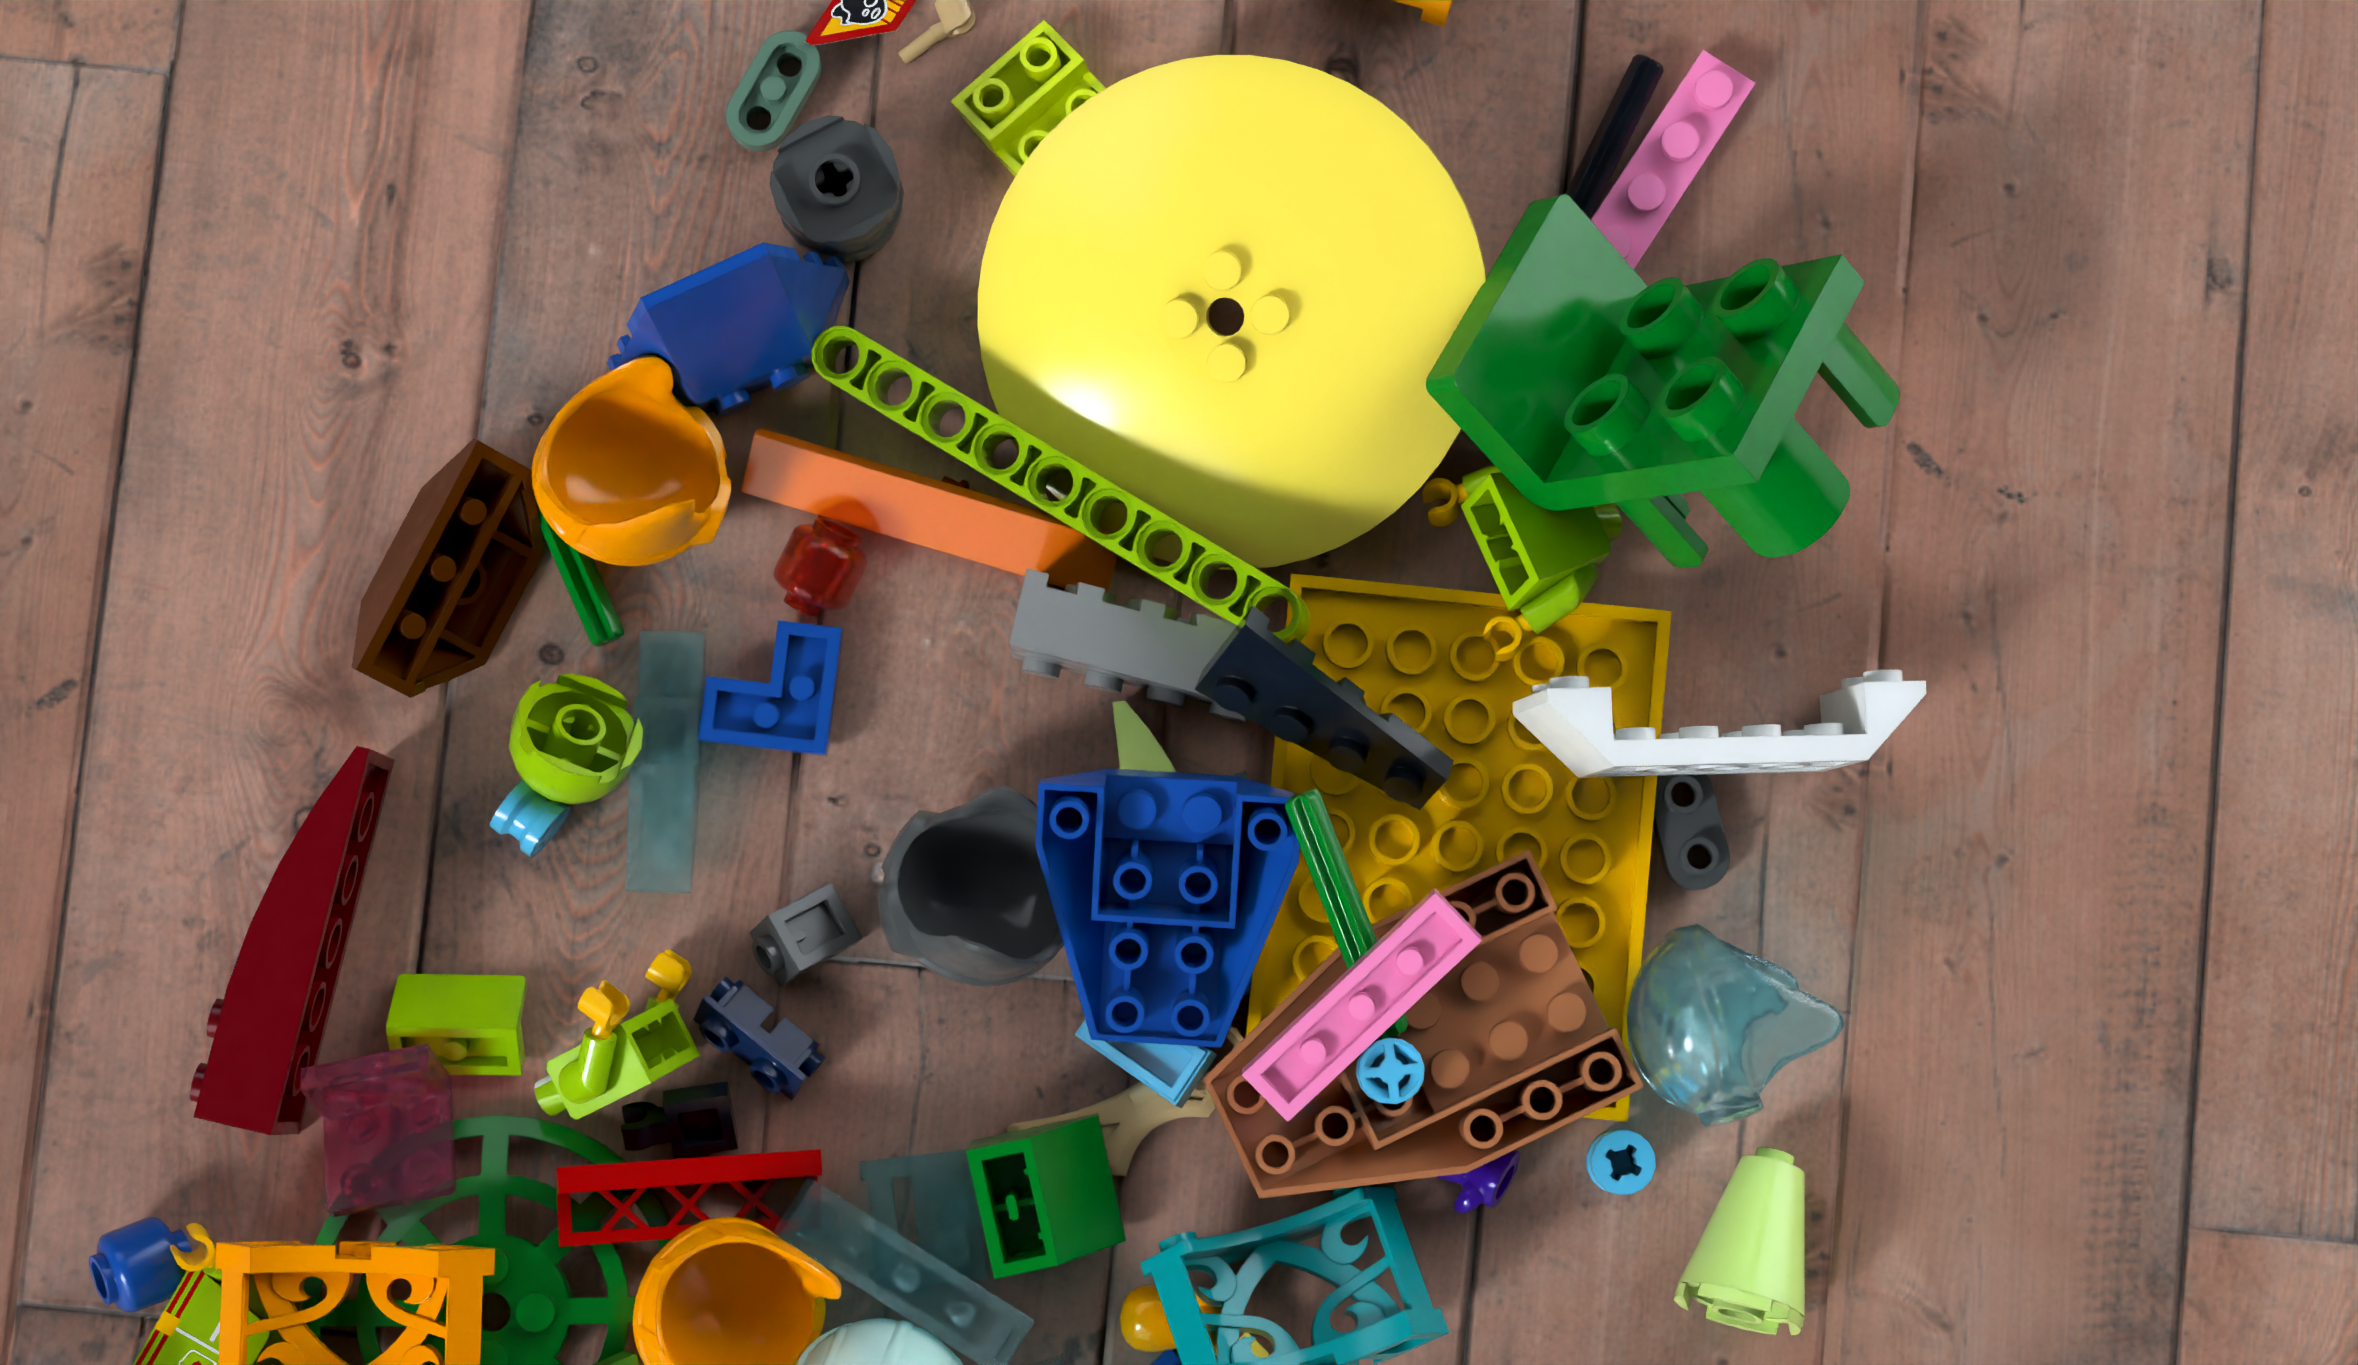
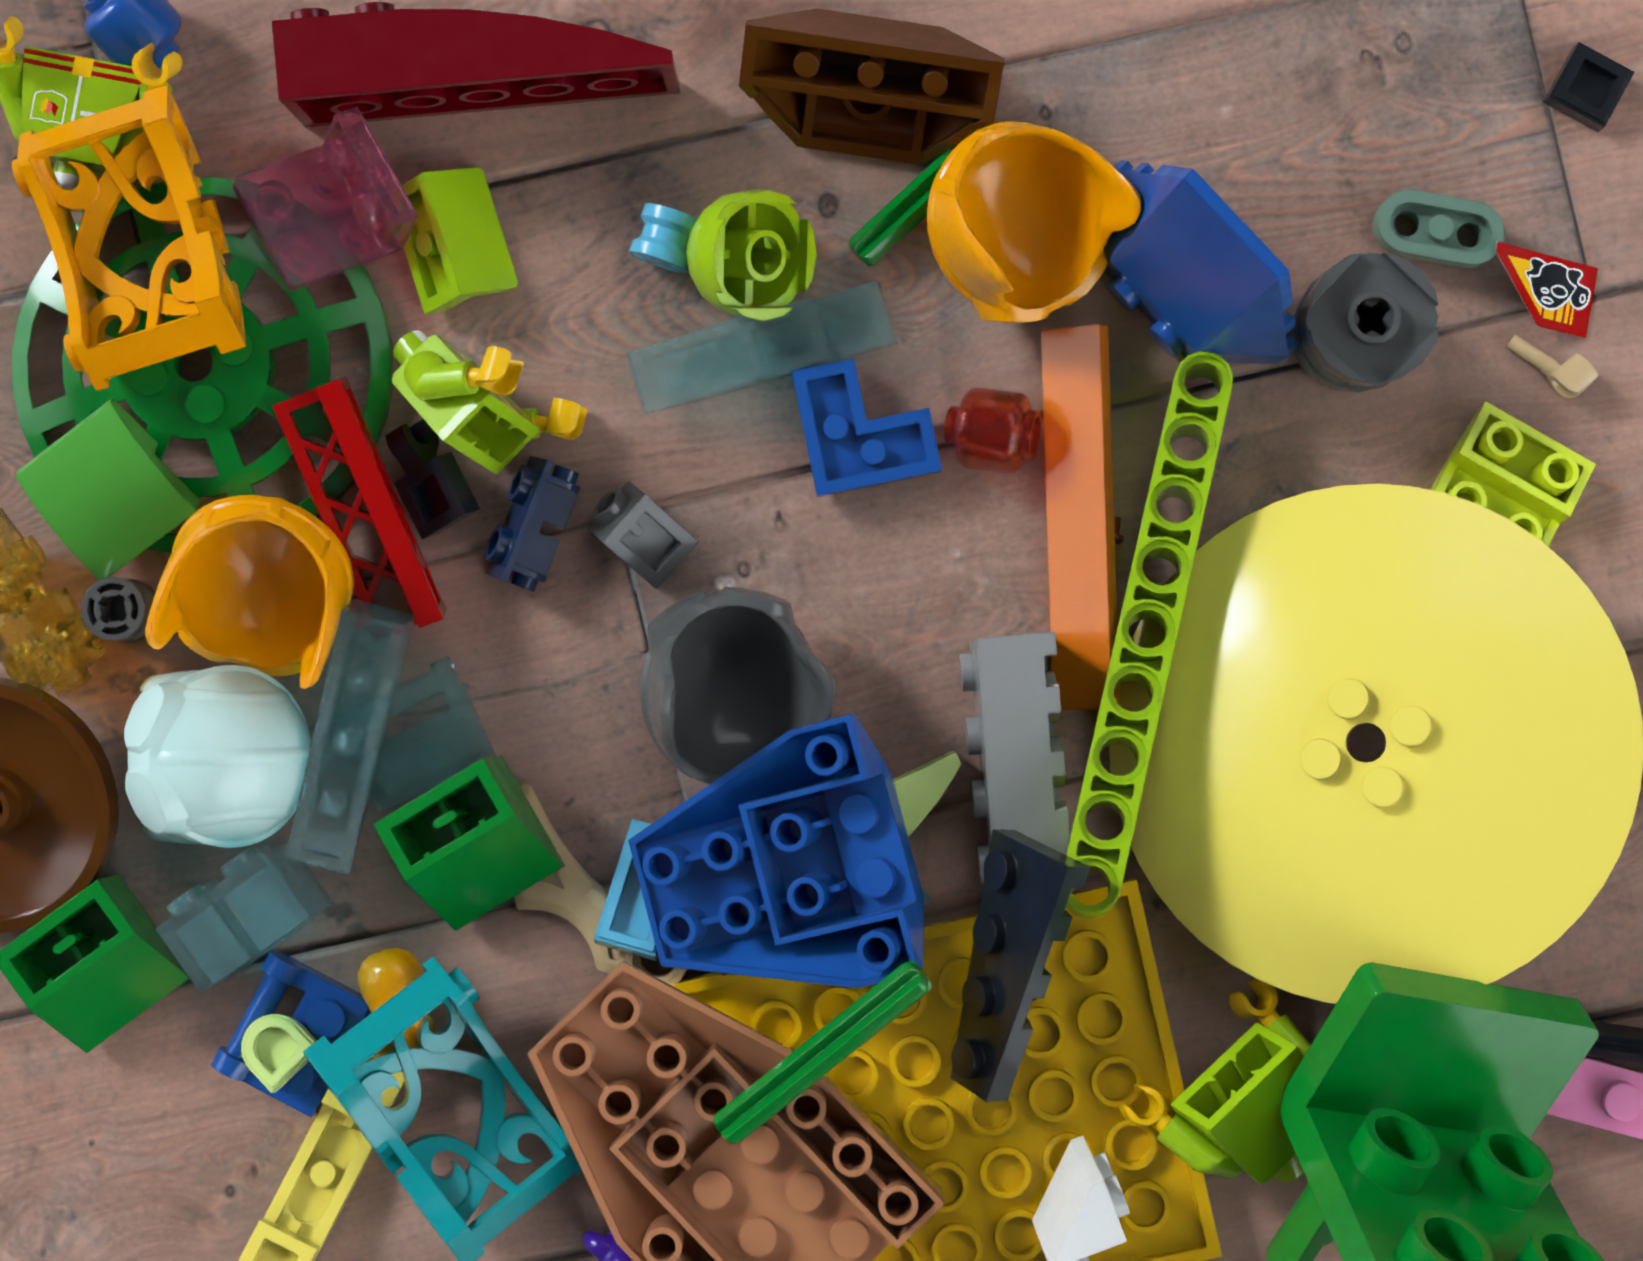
camera: 85 degrees right, 5 degrees up
(1361, 1005) = (738, 1098): bright pink plate -> none
(1400, 1069) = (682, 1157): medium azure wheel -> none

